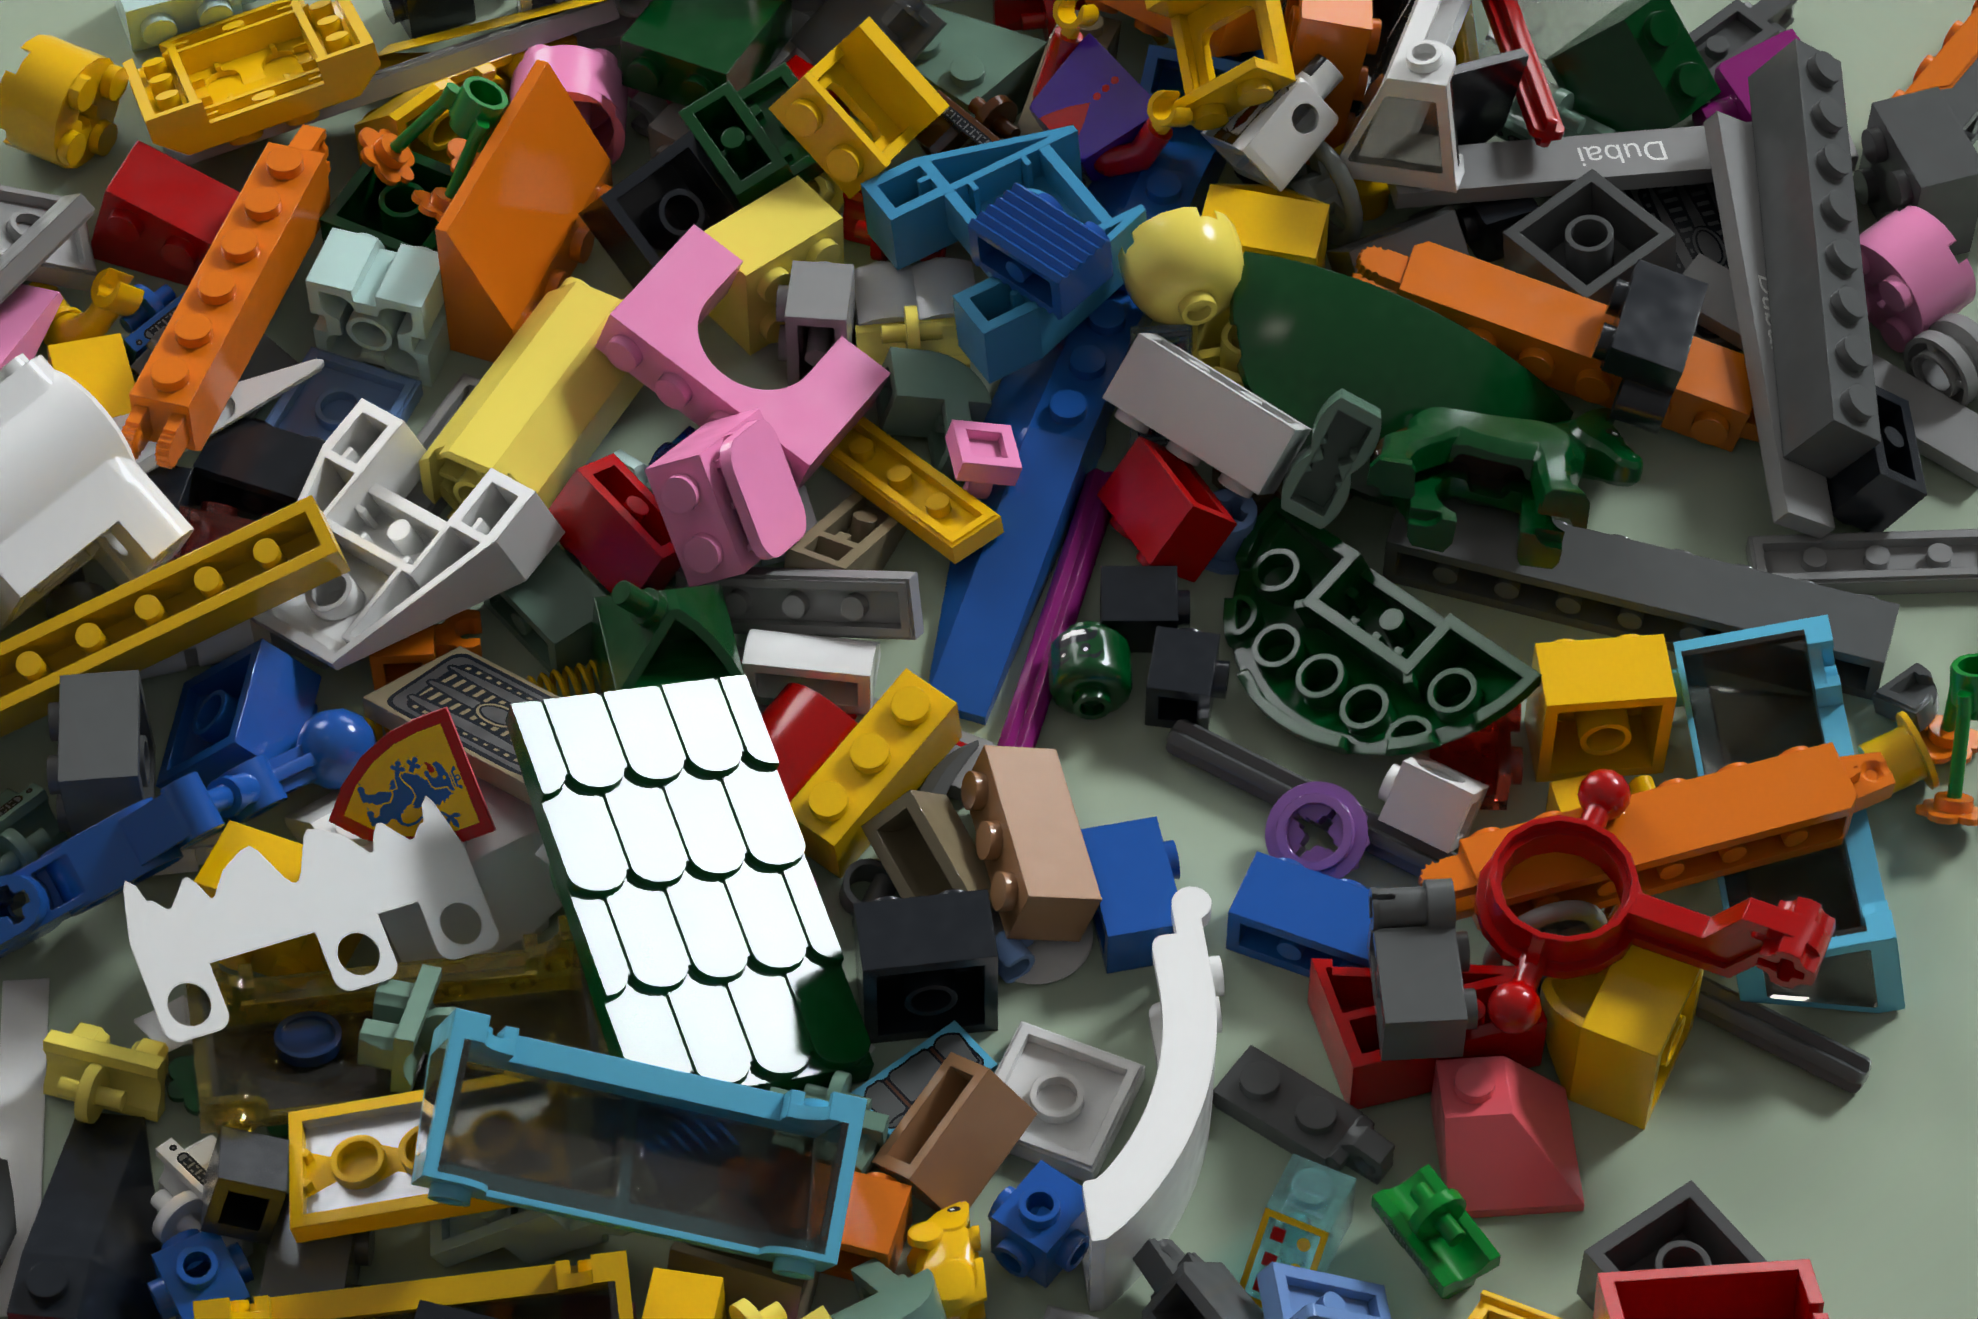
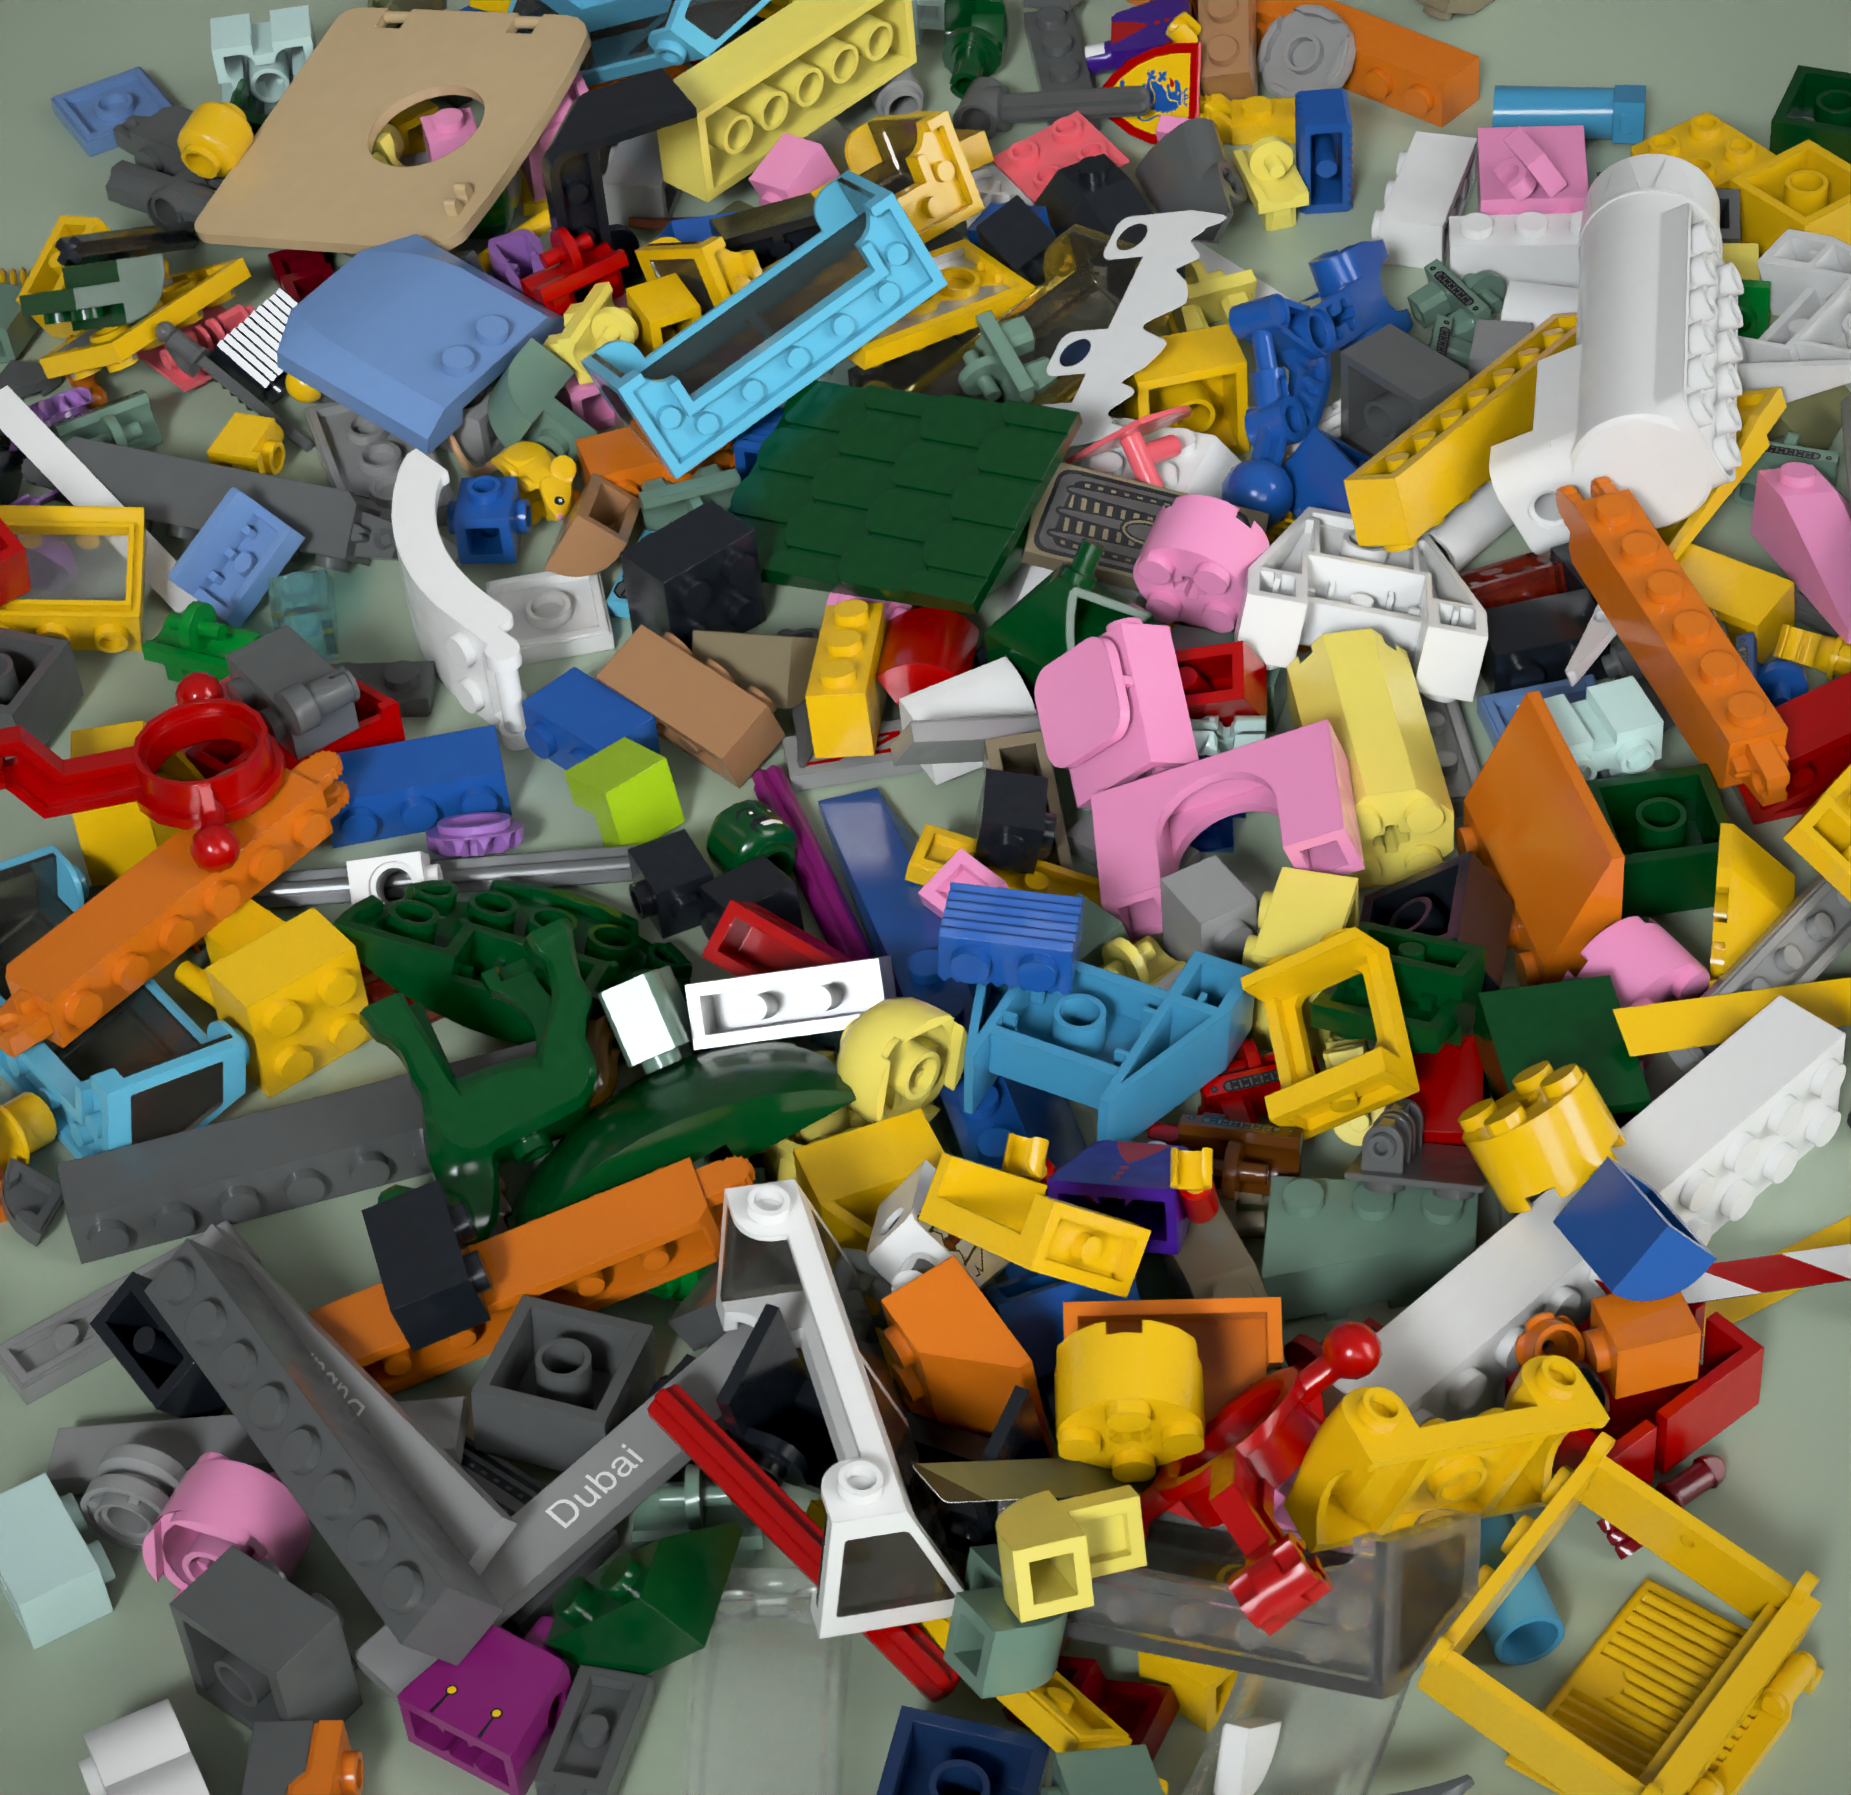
camera: 150 degrees right, 10 degrees down
(473, 116) = (1627, 794): plant -> none
(509, 612) = (1197, 562): none -> bright pink brick
(891, 488) = (1012, 821): none -> black brick
(1160, 780) = (627, 793): none -> lime piece

